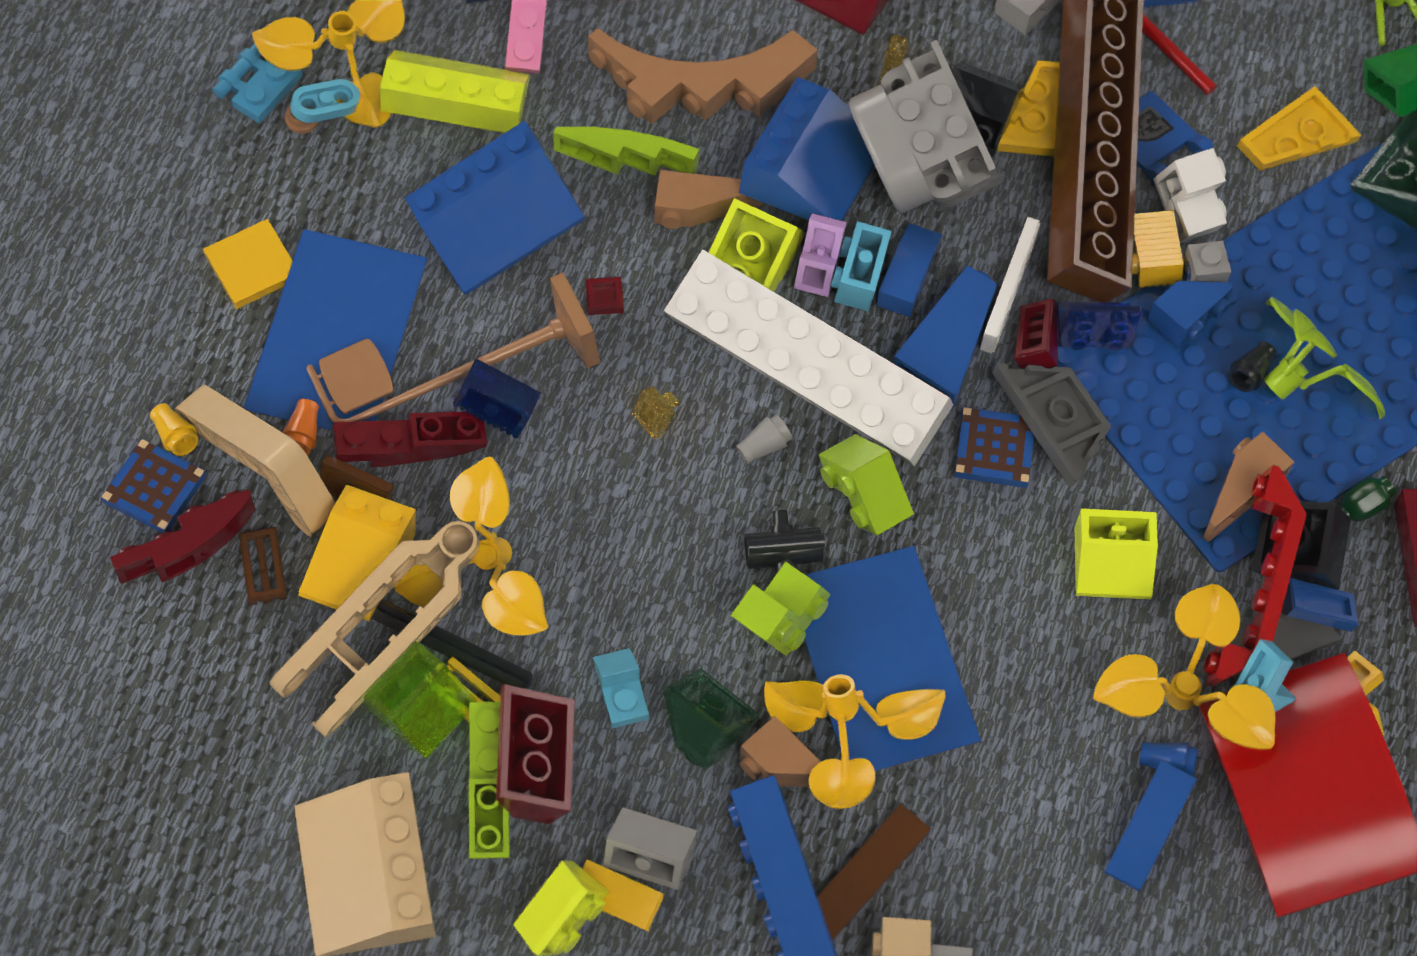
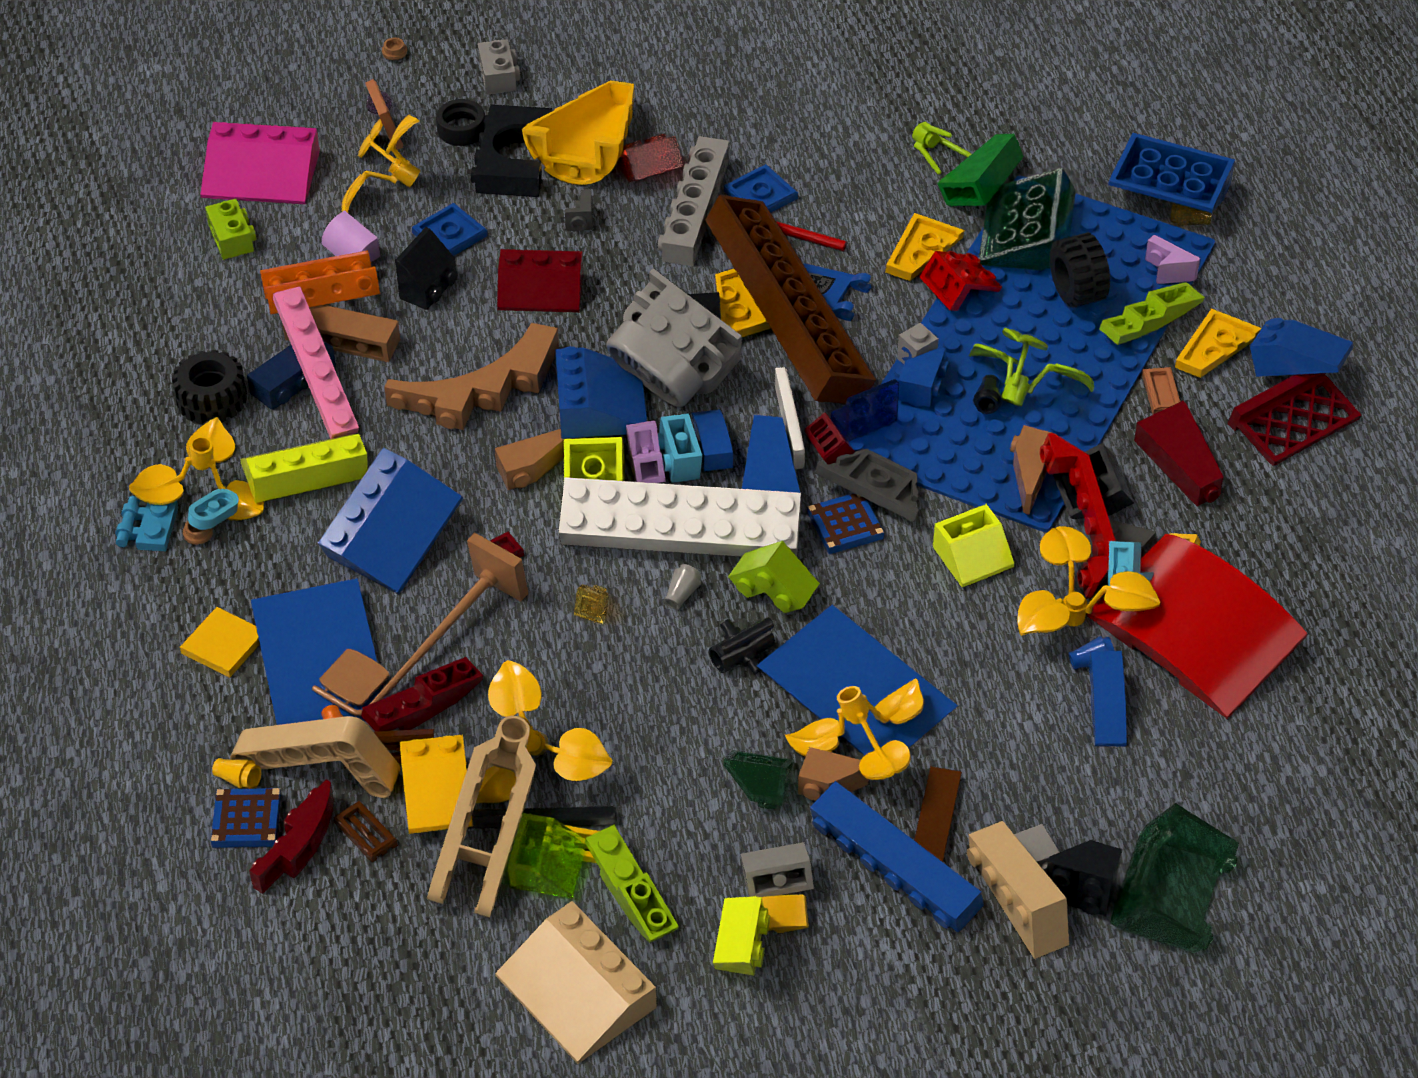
camera: 25 degrees left, 15 degrees down
(496, 398) = (473, 640): clear blue brick -> none
(535, 754) = (659, 847): dark red slope -> none
(614, 147) = (448, 452): lime slope -> none
(621, 687) = (684, 787): medium azure slope -> none
(783, 609) = (769, 679): lime brick -> none
(895, 54) = (612, 314): clear yellow axle -> none
(1156, 249) = (878, 351): yellow brick -> none
(1189, 190) = (876, 309): white brick -> none
(1310, 193) = (954, 275): none -> red bracket
(1321, 605) = (1132, 516): blue tile -> none
(1368, 498) = (1118, 439): dark green plant -> none

